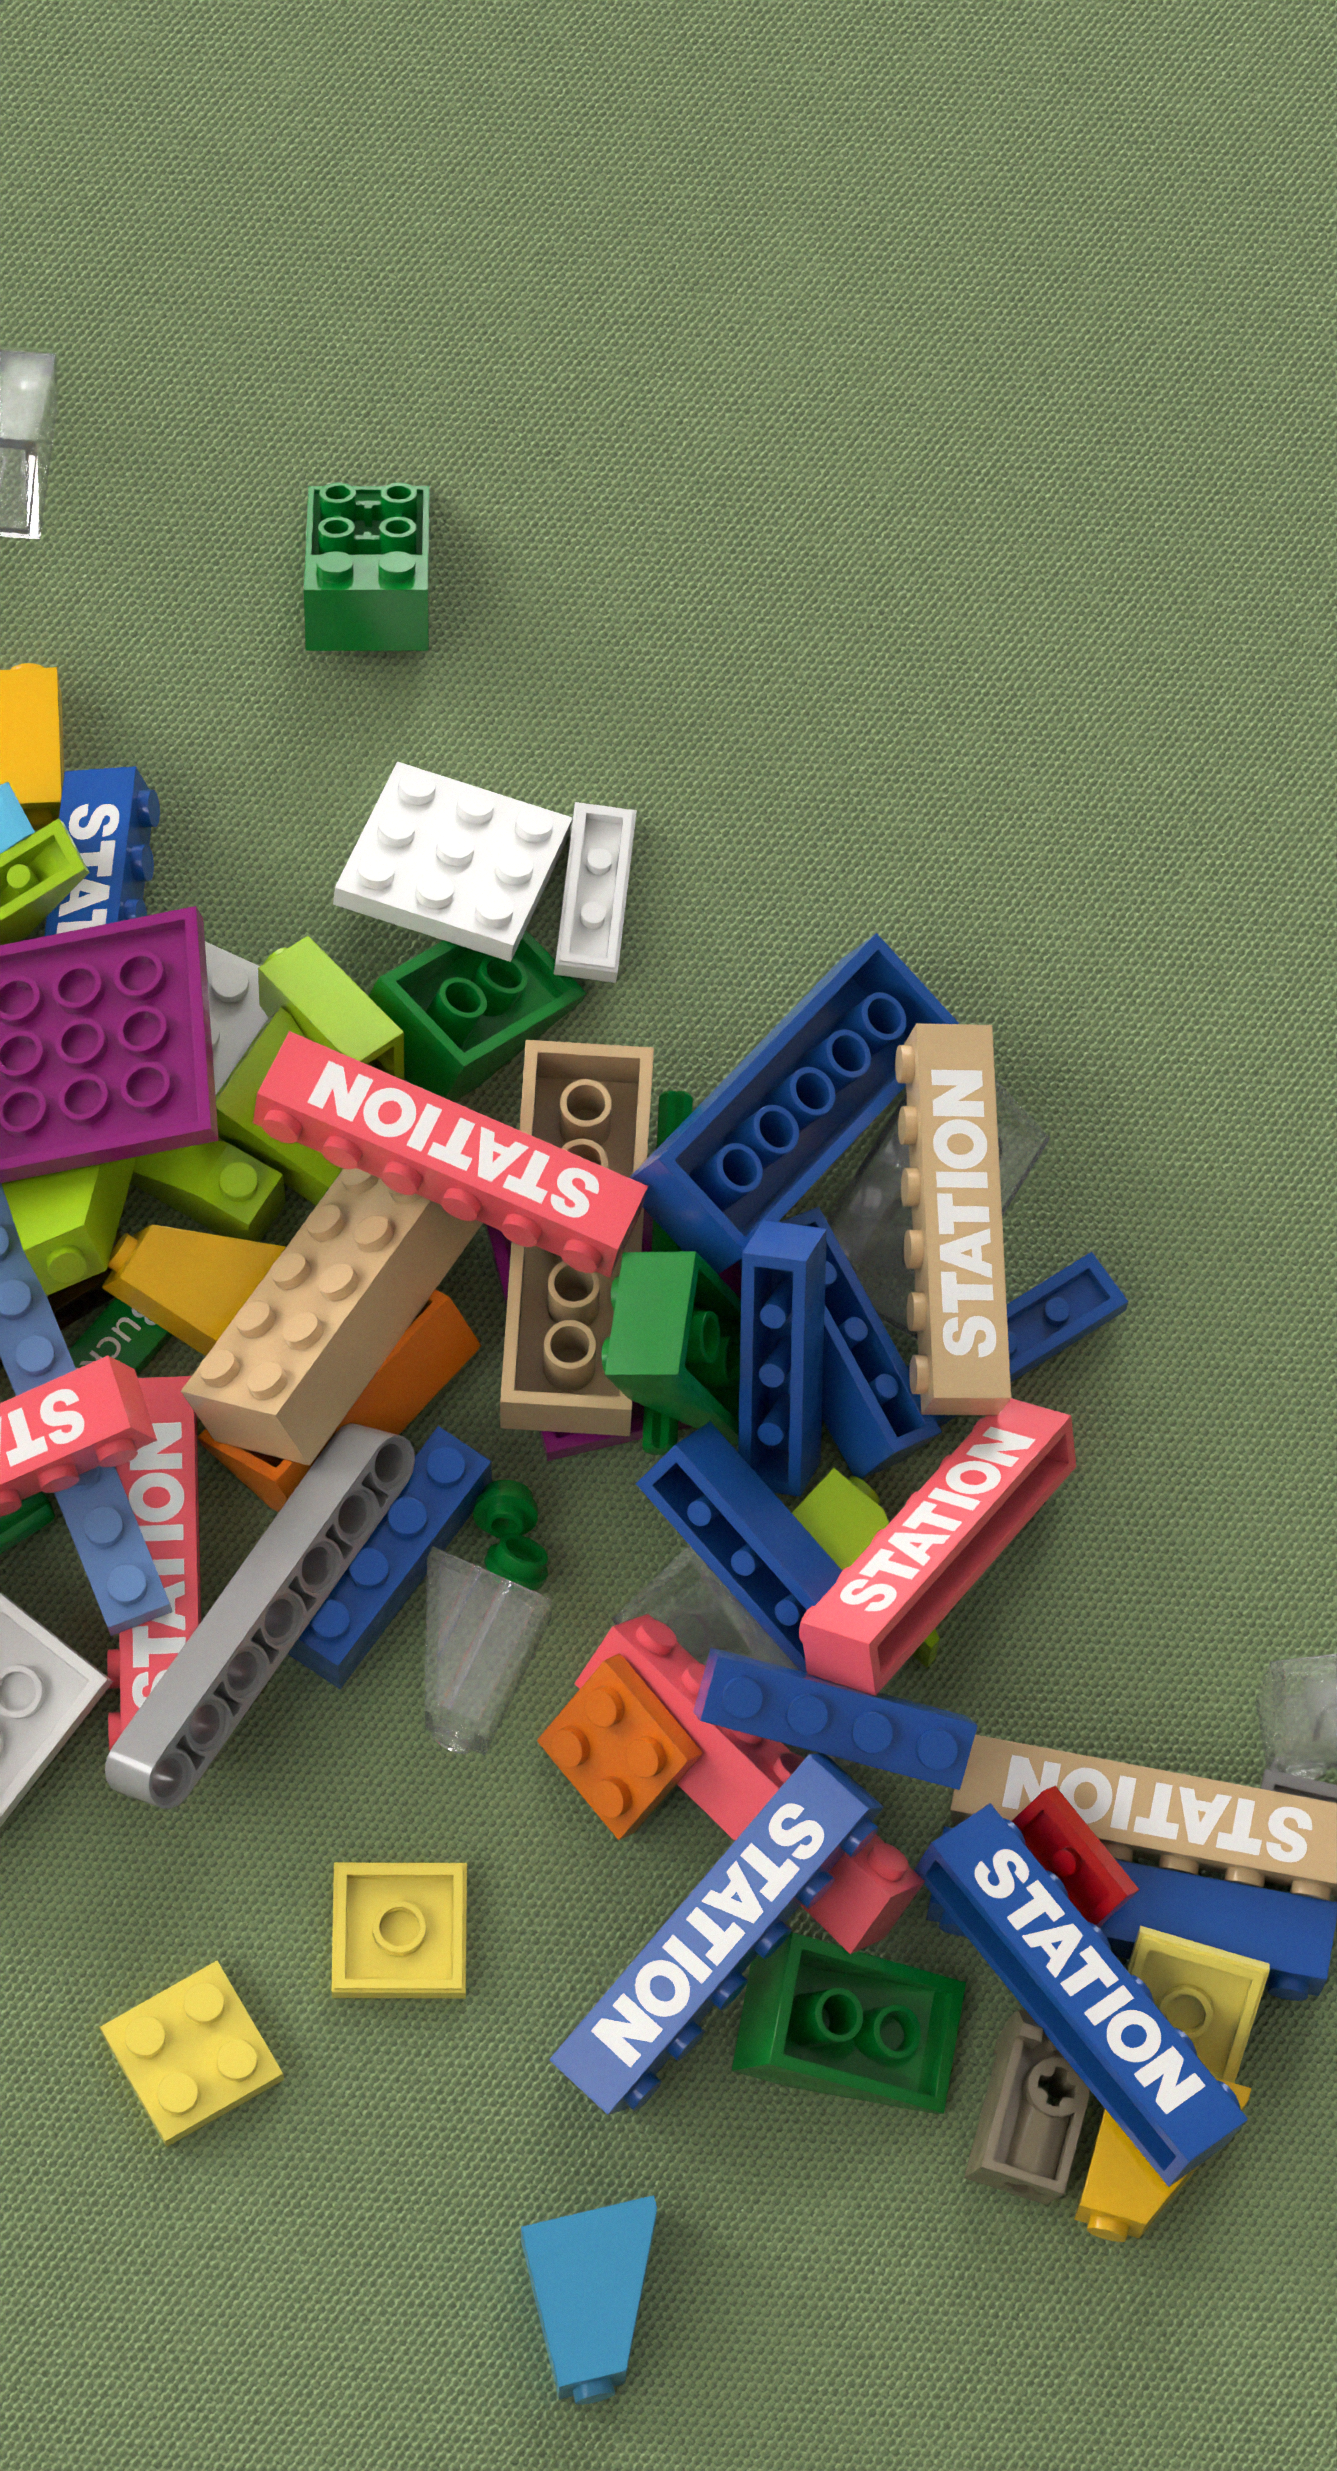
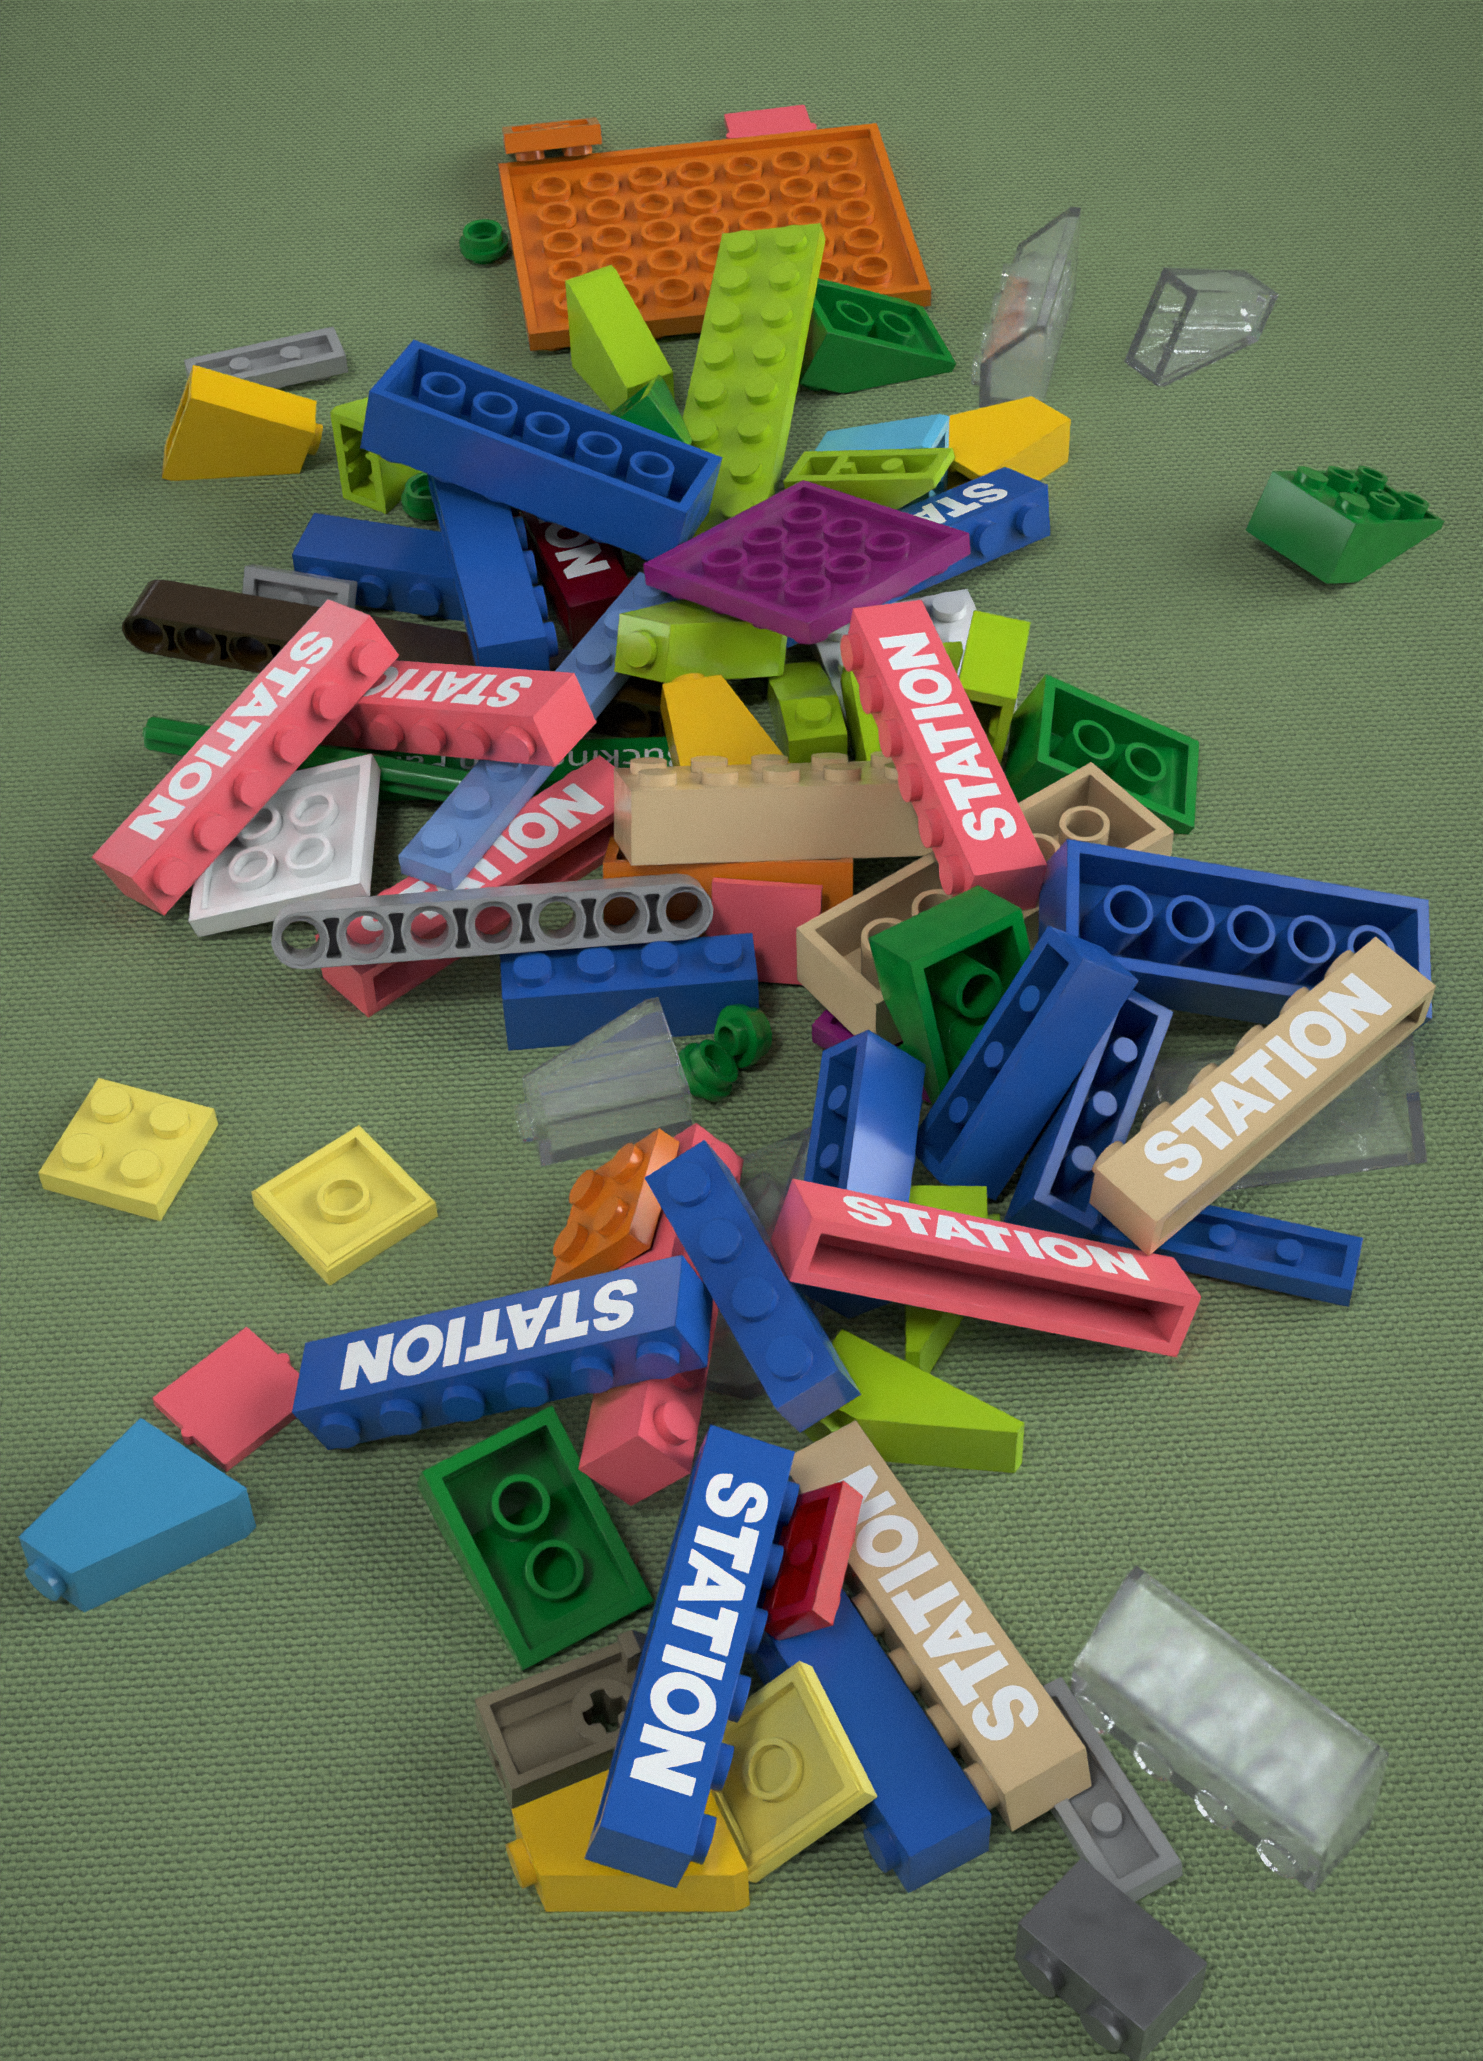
camera: 55 degrees right, 20 degrees down
(431, 1395) = (771, 914): none -> coral piece
(453, 861) = (1193, 685): white plate -> none
(521, 2142) = (232, 1399): none -> coral piece
(595, 892) = (1271, 778): white tile -> none
(978, 1677) = (919, 1416): none -> lime slope

